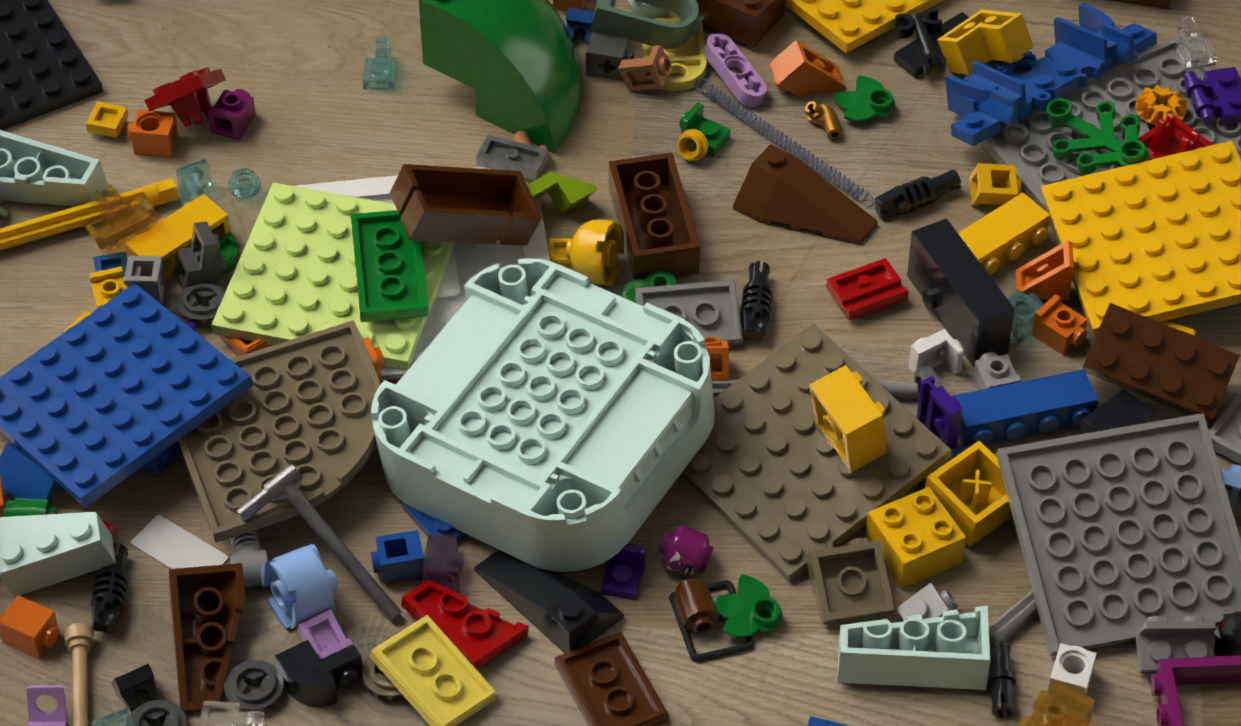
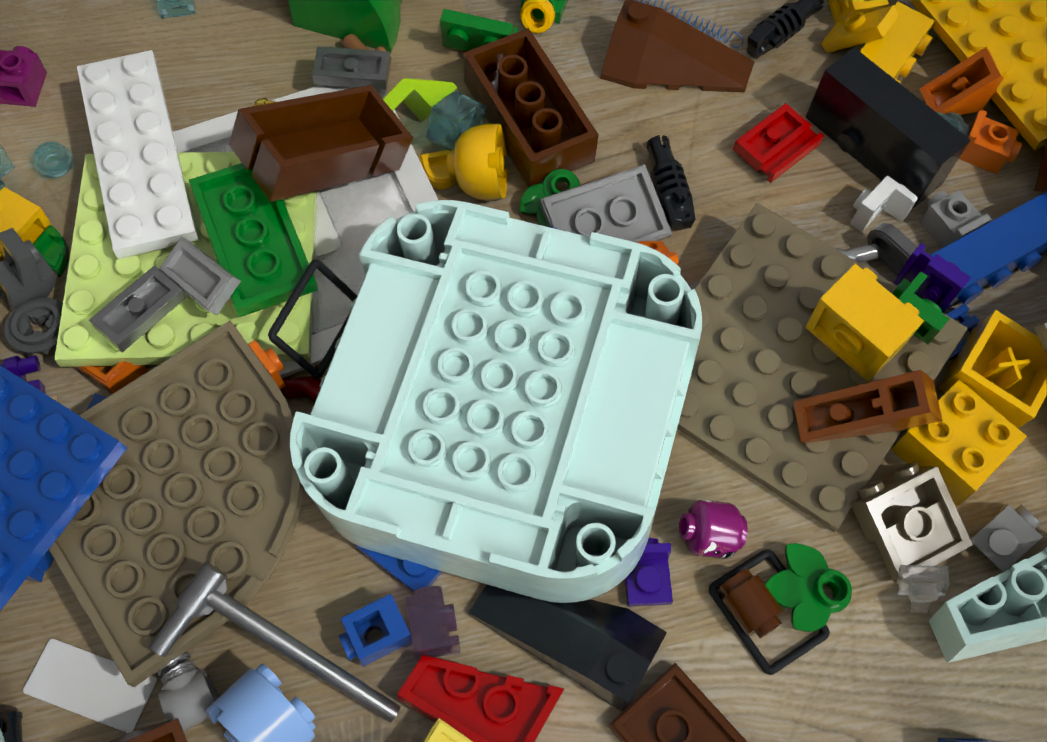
camera: 20 degrees left, 15 degrees up
(285, 298) = (137, 308): none -> flat silver plate
(314, 187) = (136, 154): none -> white plate
(339, 284) = (199, 276): none -> light grey tile
(431, 293) = (315, 264): none -> black piece
(584, 209) = (453, 117): none -> clear light blue brick
(621, 145) = (470, 31): none -> green bracket
(830, 612) = (922, 585): none -> clear plate
(840, 485) = (869, 408): none -> dark orange slope
(901, 421) = (928, 310): none -> green bracket
(978, 209) = (860, 29): none -> yellow plate

